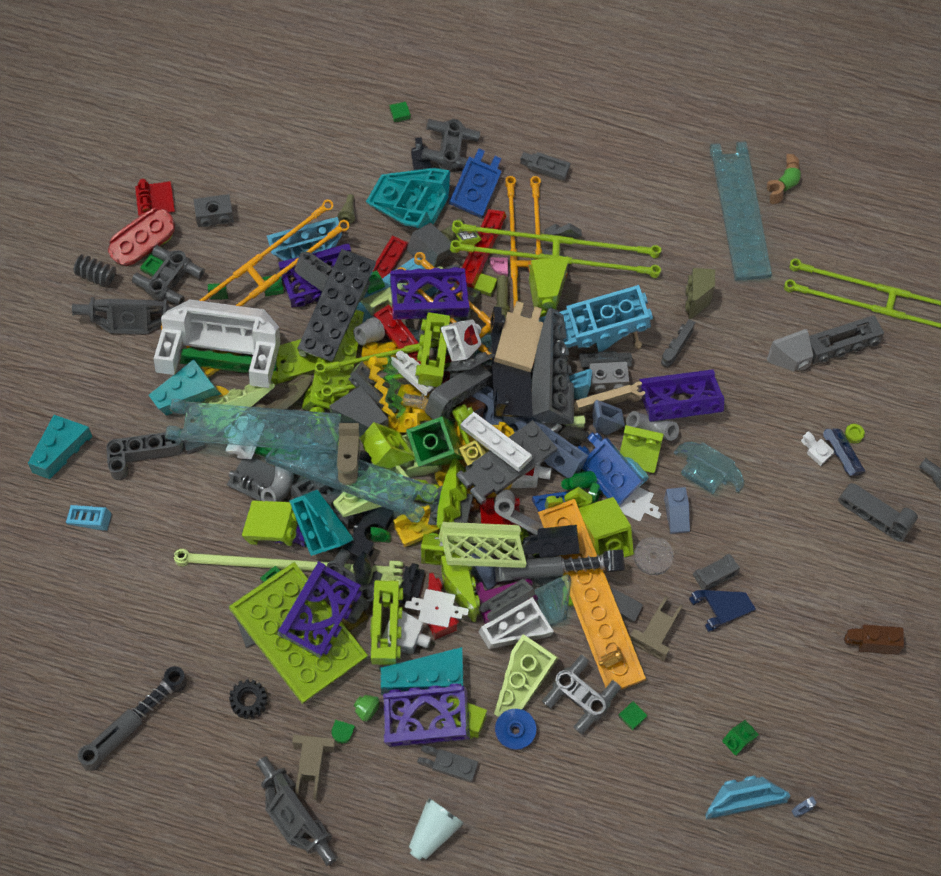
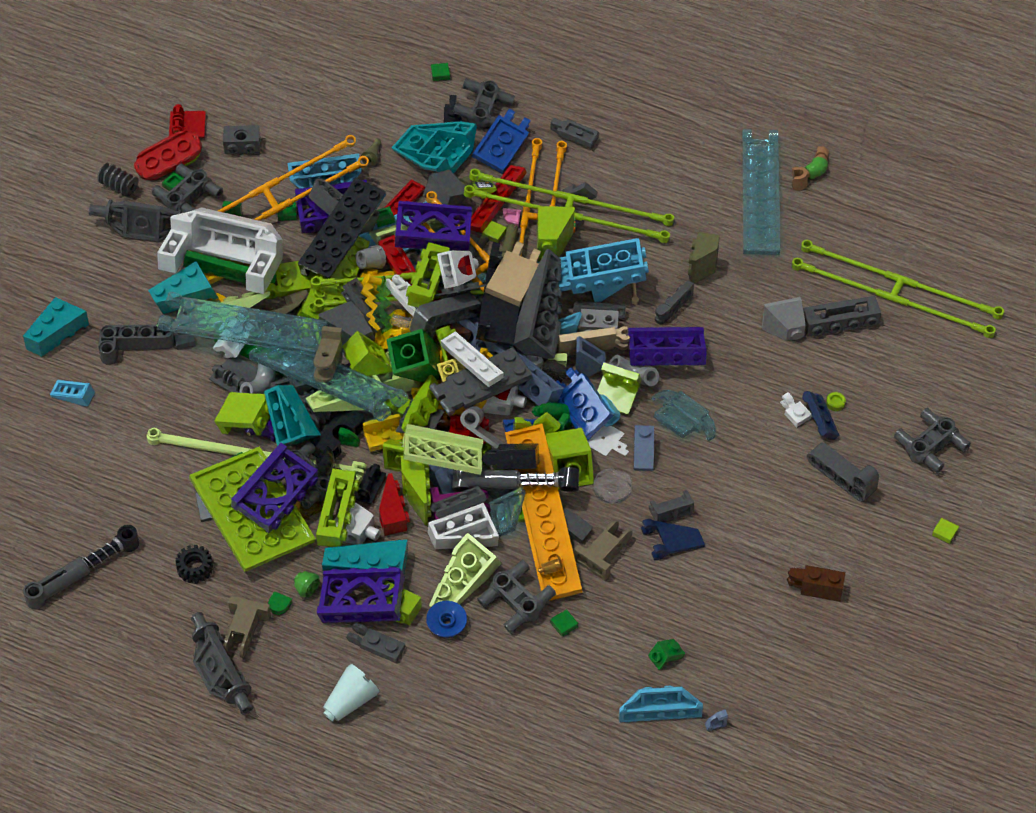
camera: 10 degrees right, 10 degrees down
(427, 609) = (393, 511): white piece -> none

